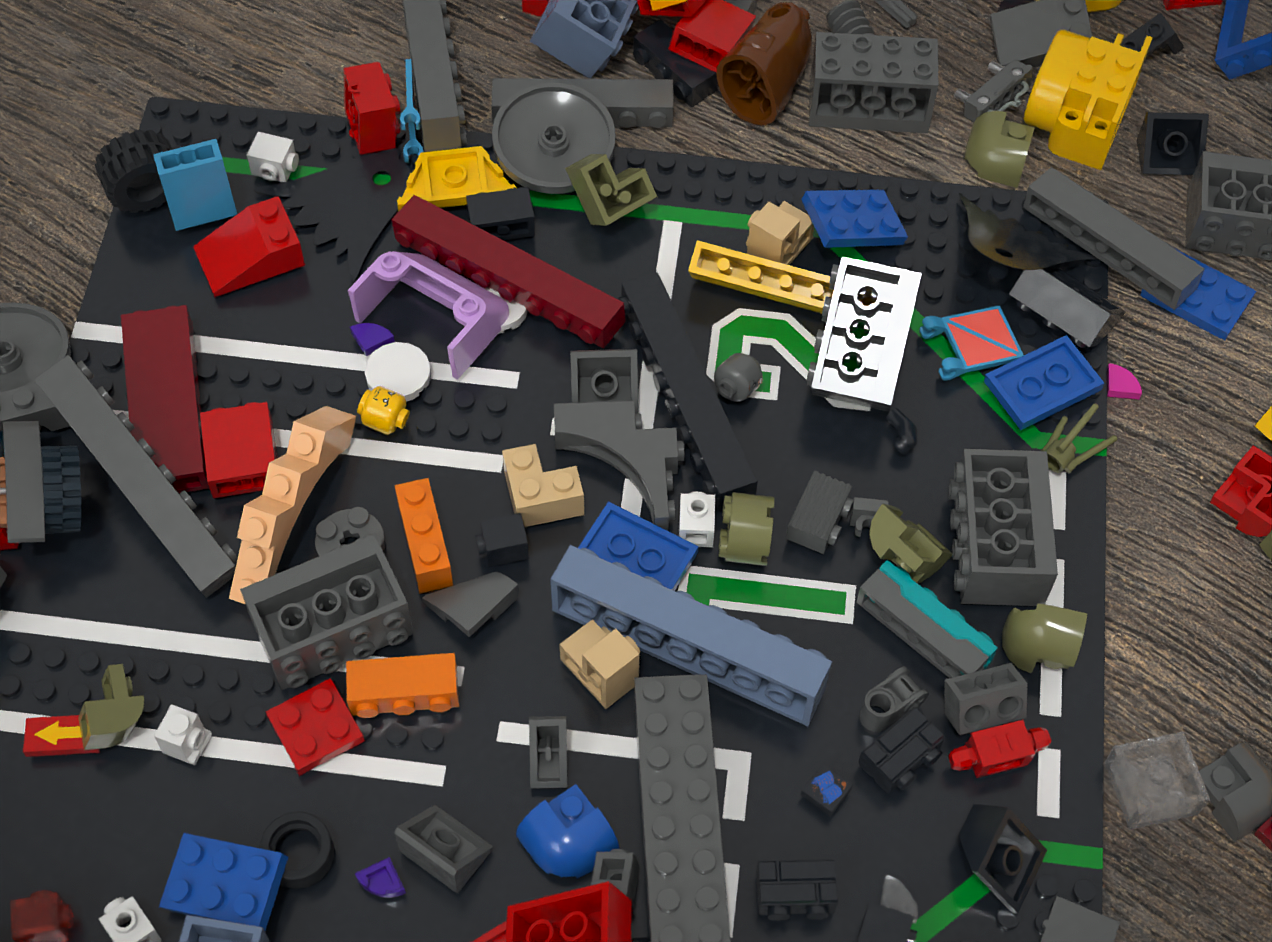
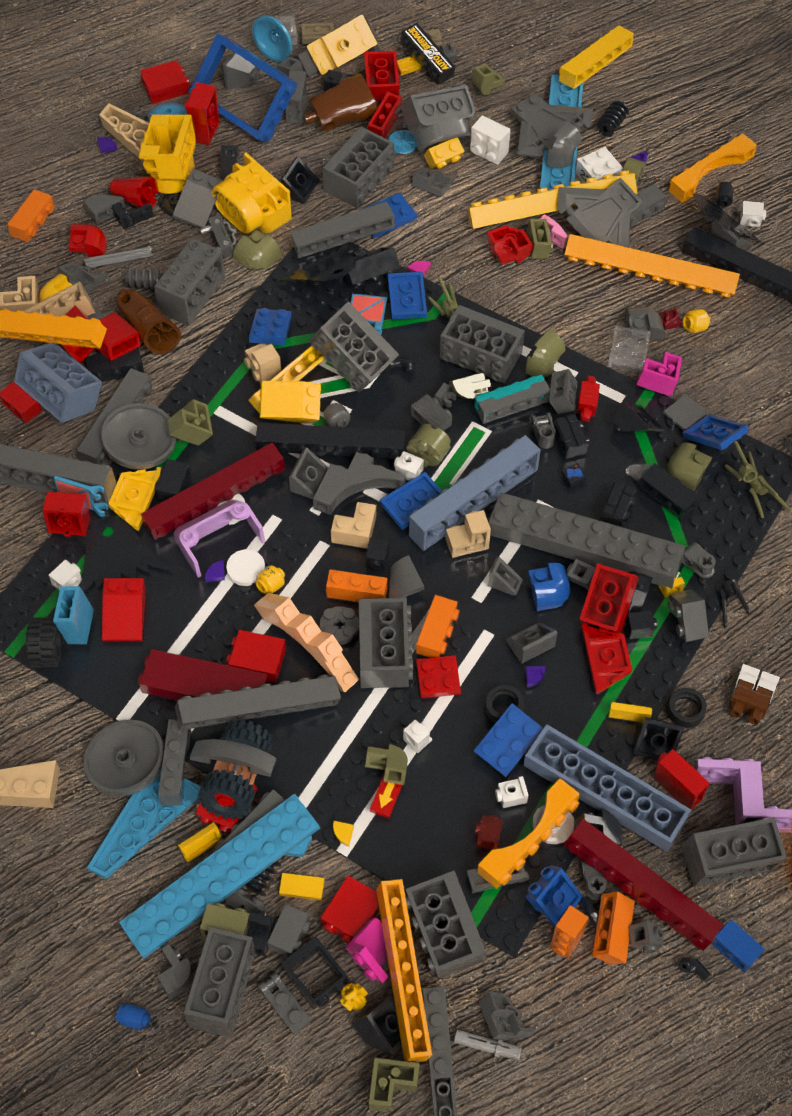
camera: 65 degrees left, 0 degrees up
(717, 296) = (290, 401): none -> yellow slope
(1124, 861) = (660, 376): none -> dark pink brick

